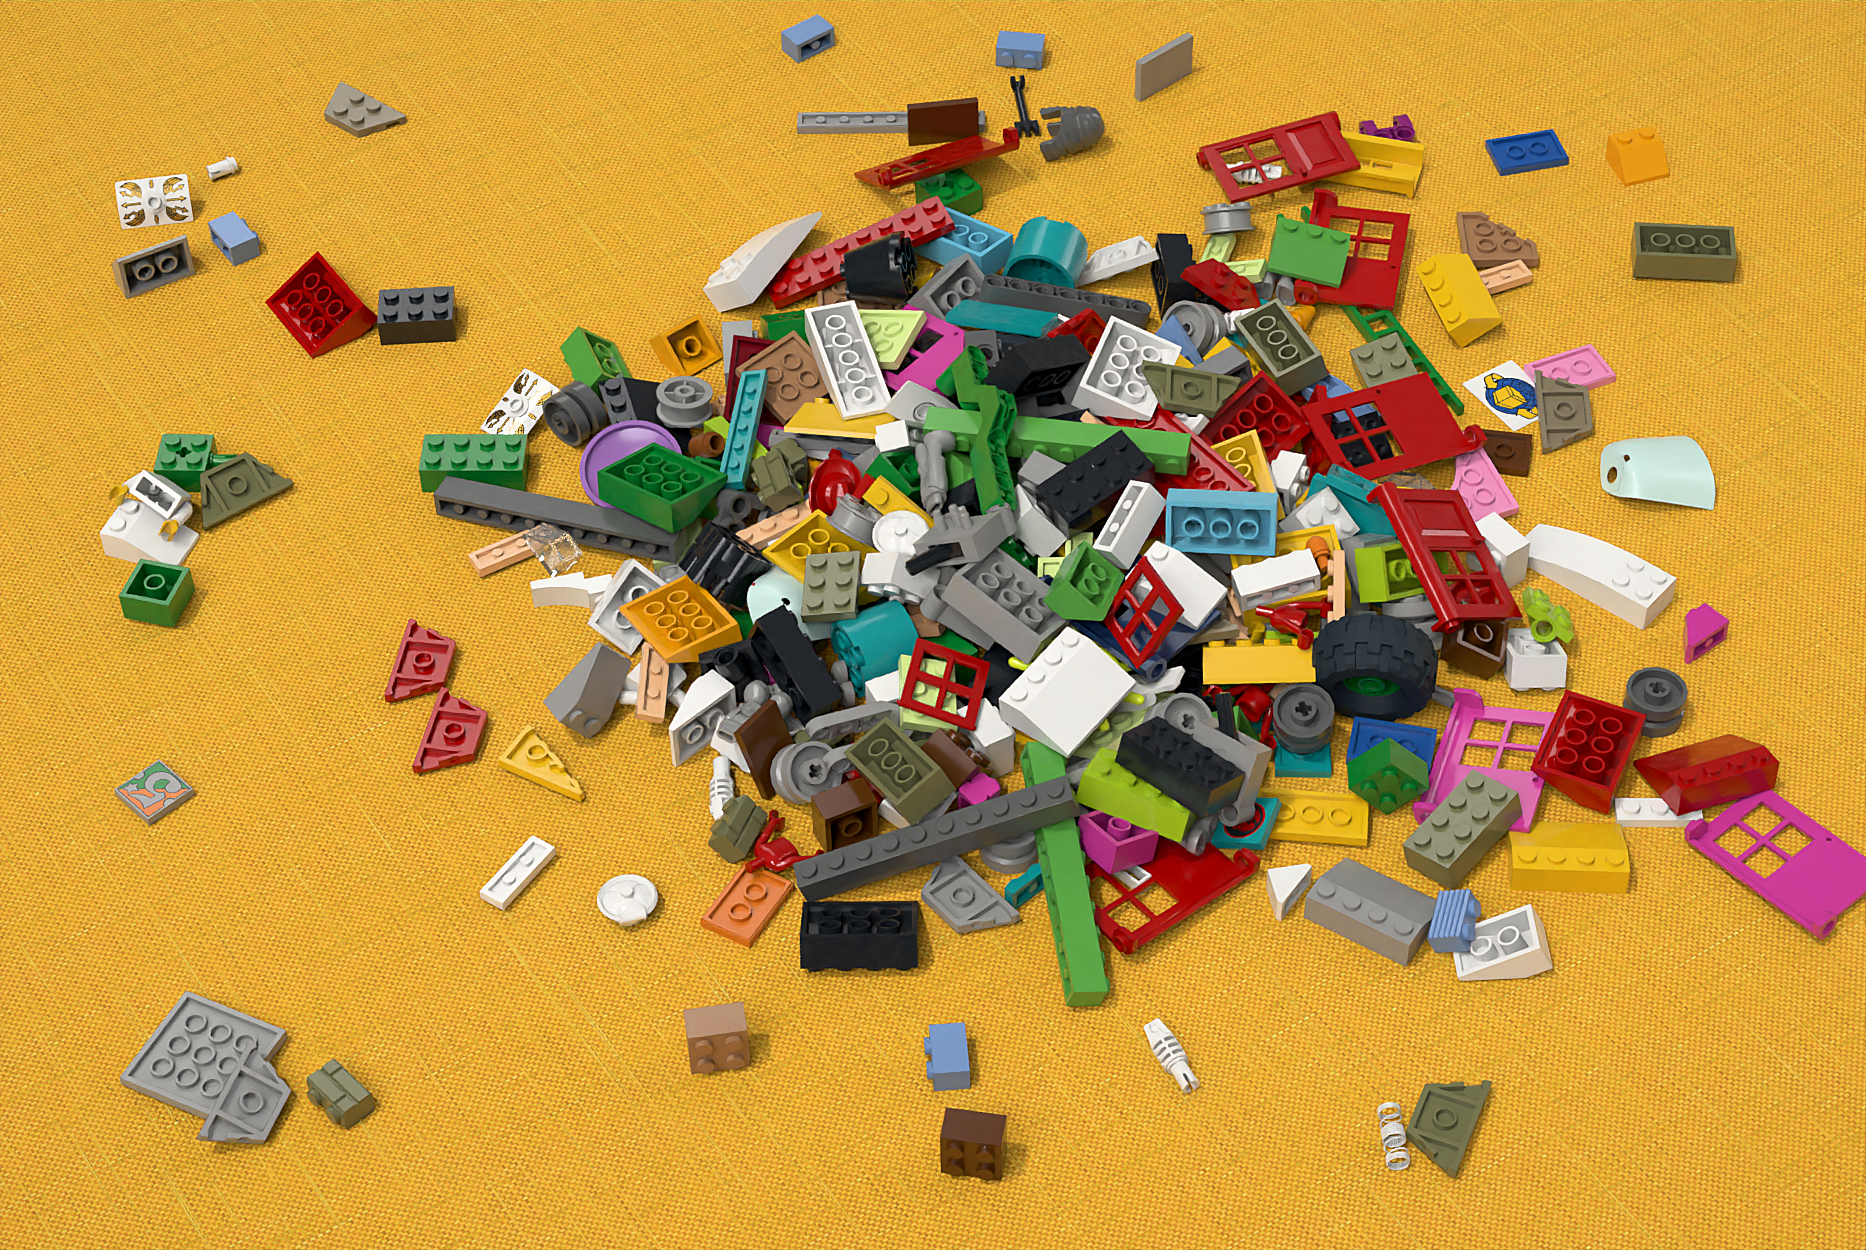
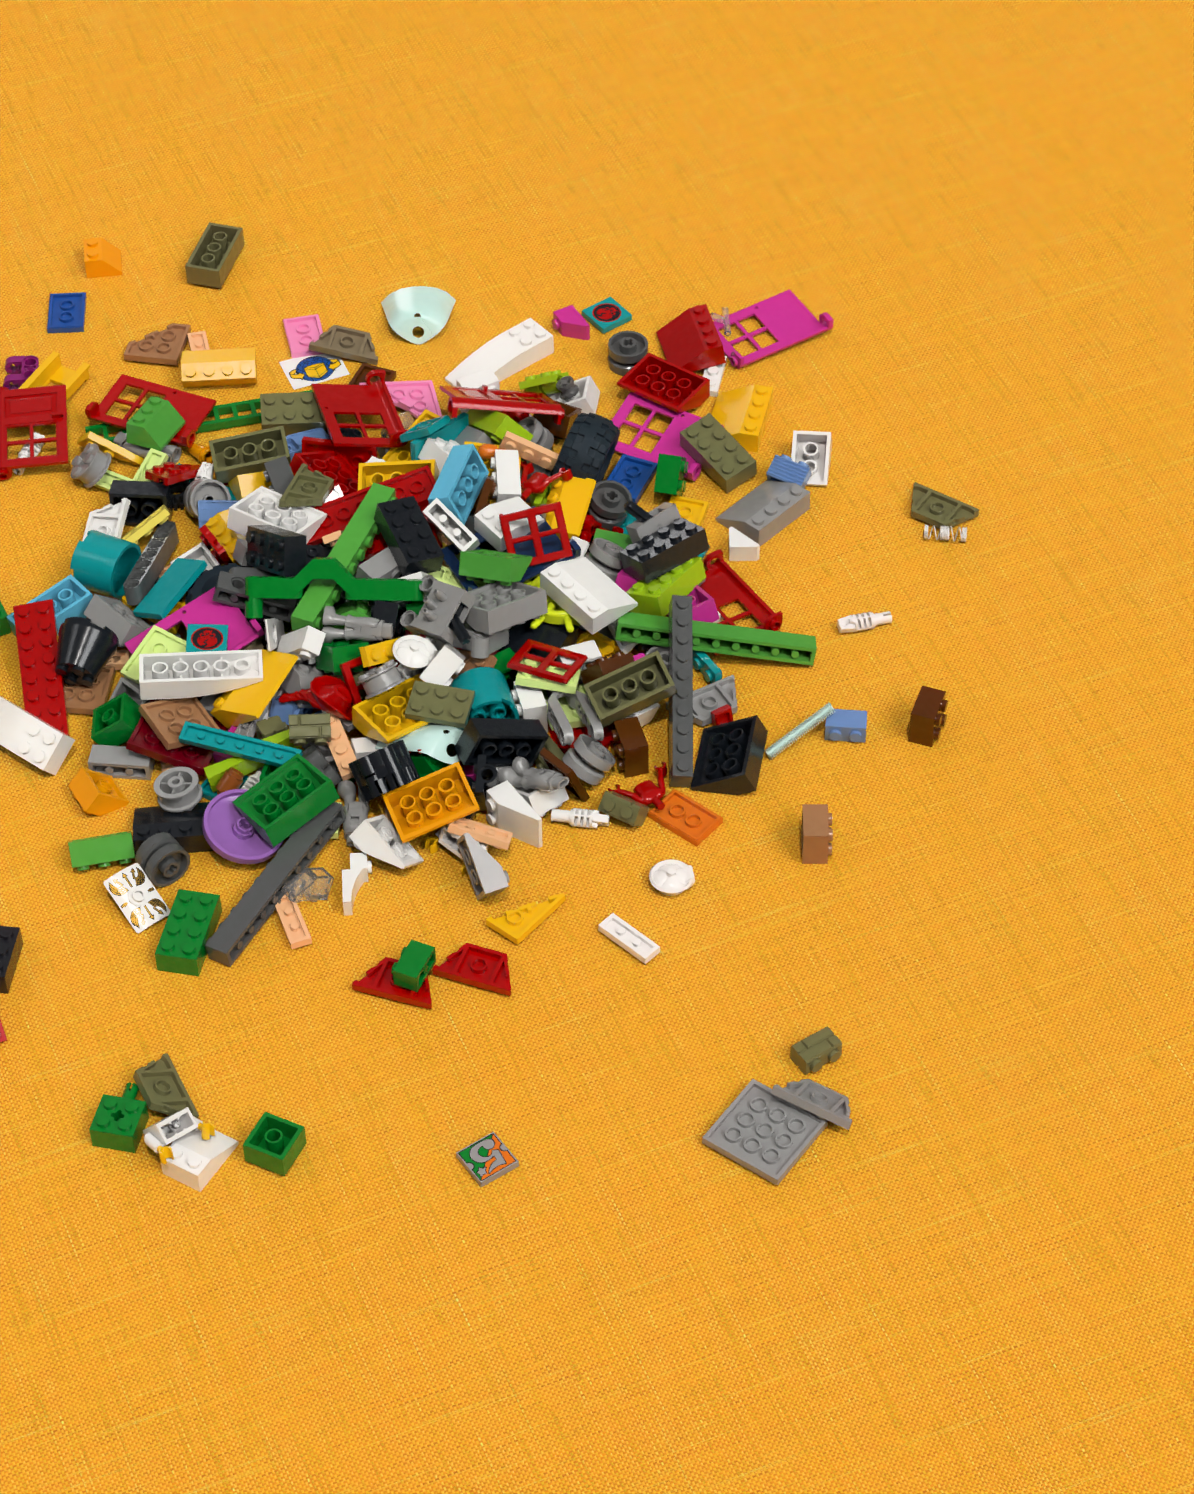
camera: 80 degrees left, 0 degrees up
(431, 662) = (413, 965): none -> green brick
(904, 360) = (206, 637): none -> tile
(917, 999) = (799, 730): none -> light aqua axle
(934, 913) = (722, 715): none -> red tile
(1132, 290) = (146, 526): none -> light yellow plate
(1221, 555) = (487, 489): none -> reddish brown plate
(1266, 221) = (107, 446): none -> yellow wing
(1532, 636) = (567, 387): none -> dark grey wheel
(1743, 672) = (606, 315): none -> teal tile
(1776, 802) = (724, 319): none -> clear piece

